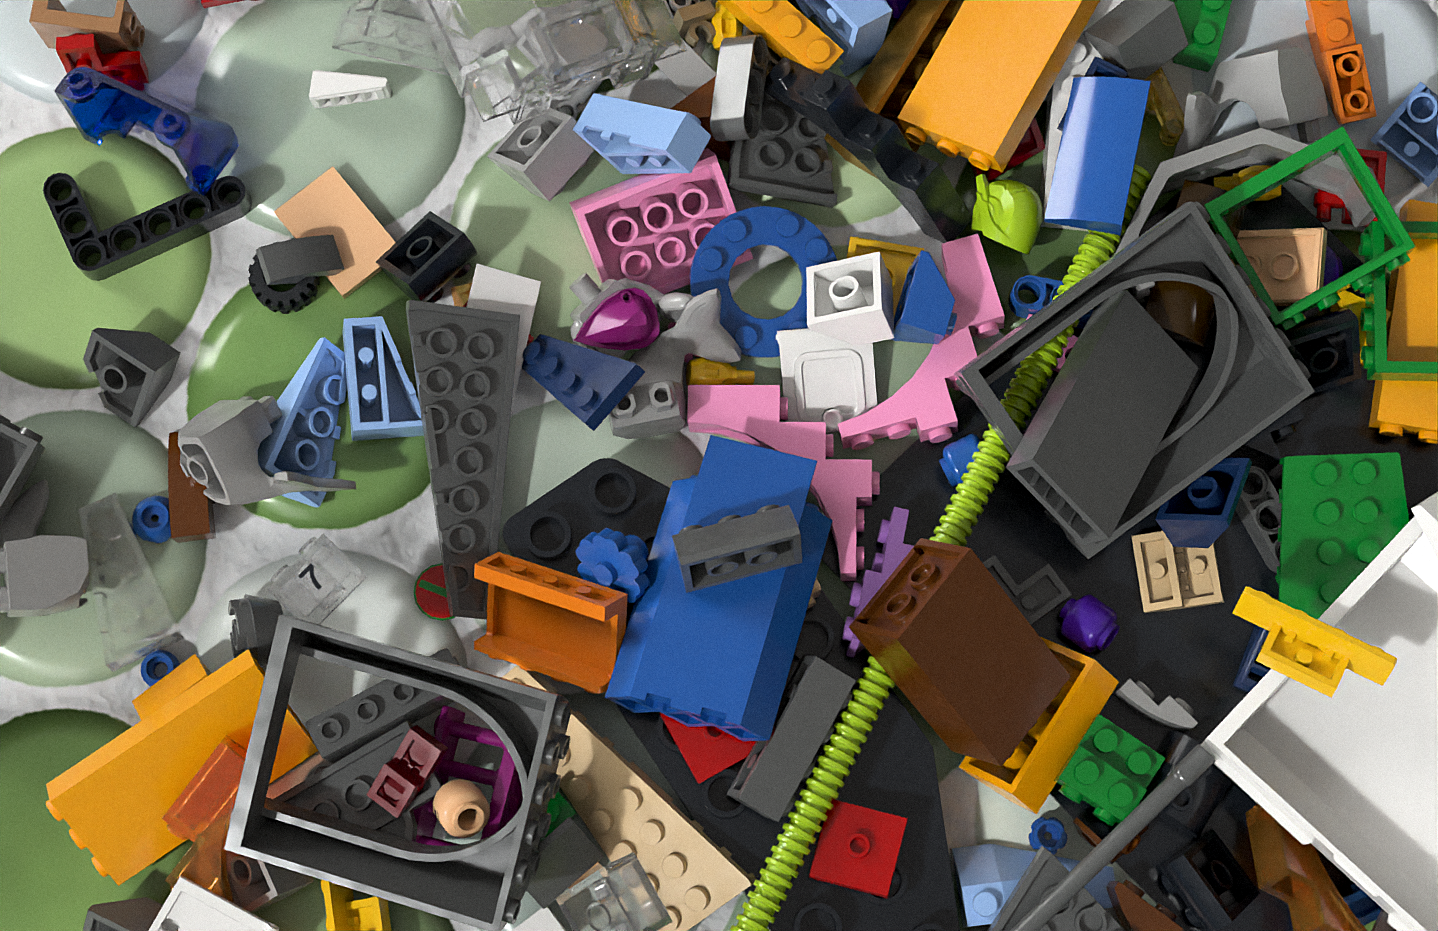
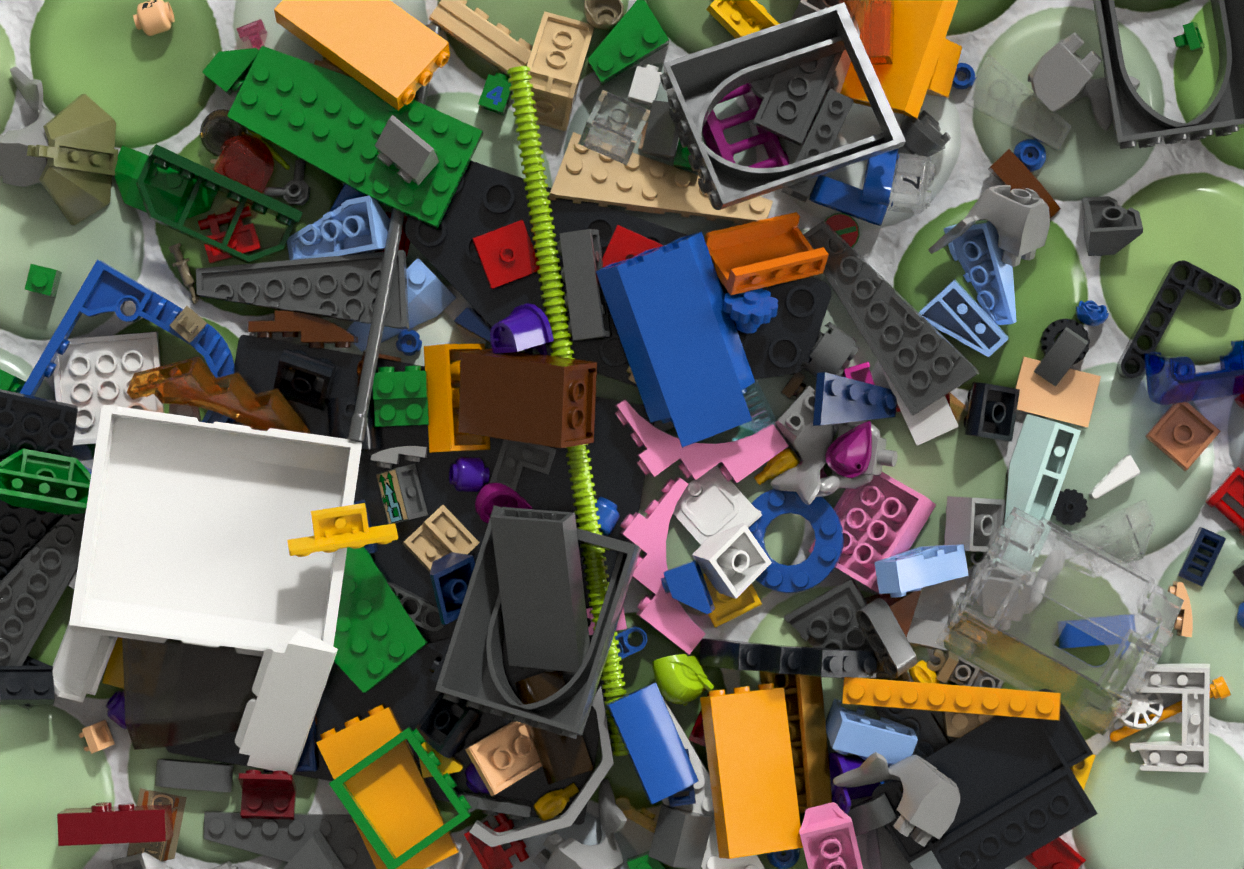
camera: 145 degrees right, 10 degrees up
(228, 287) = (1091, 313): none -> blue plate
(234, 82) = (1182, 434): none -> nougat plate
(349, 611) = (879, 178): none -> blue beam
(398, 612) = (846, 200): none -> blue beam
(407, 771) = (780, 116): dark red slope -> none
(422, 97) = (1070, 507): none -> black piece
(424, 157) = (1039, 466): none -> light aqua wedge
(461, 808) = (736, 118): light nougat head -> none
(546, 411) = (859, 372): none -> dark pink panel
(558, 452) = (830, 351): none -> dark grey brick
(631, 451) = (794, 386): none -> dark brown plate
(688, 462) = (753, 390): none -> clear light blue slope
(738, 547) = (689, 362): dark grey slope -> none
(884, 564) = (603, 420): medium lavender slope -> none
(909, 737) = (522, 330): none -> dark purple container
(954, 798) = (473, 323): none -> dark blue slope
(1071, 566) = (497, 495): none -> magenta piece
(1185, 658) = (401, 494): none -> panel
(1306, 212) = (493, 804): none -> dark grey hinge
(1333, 143) = (466, 750): green window -> none

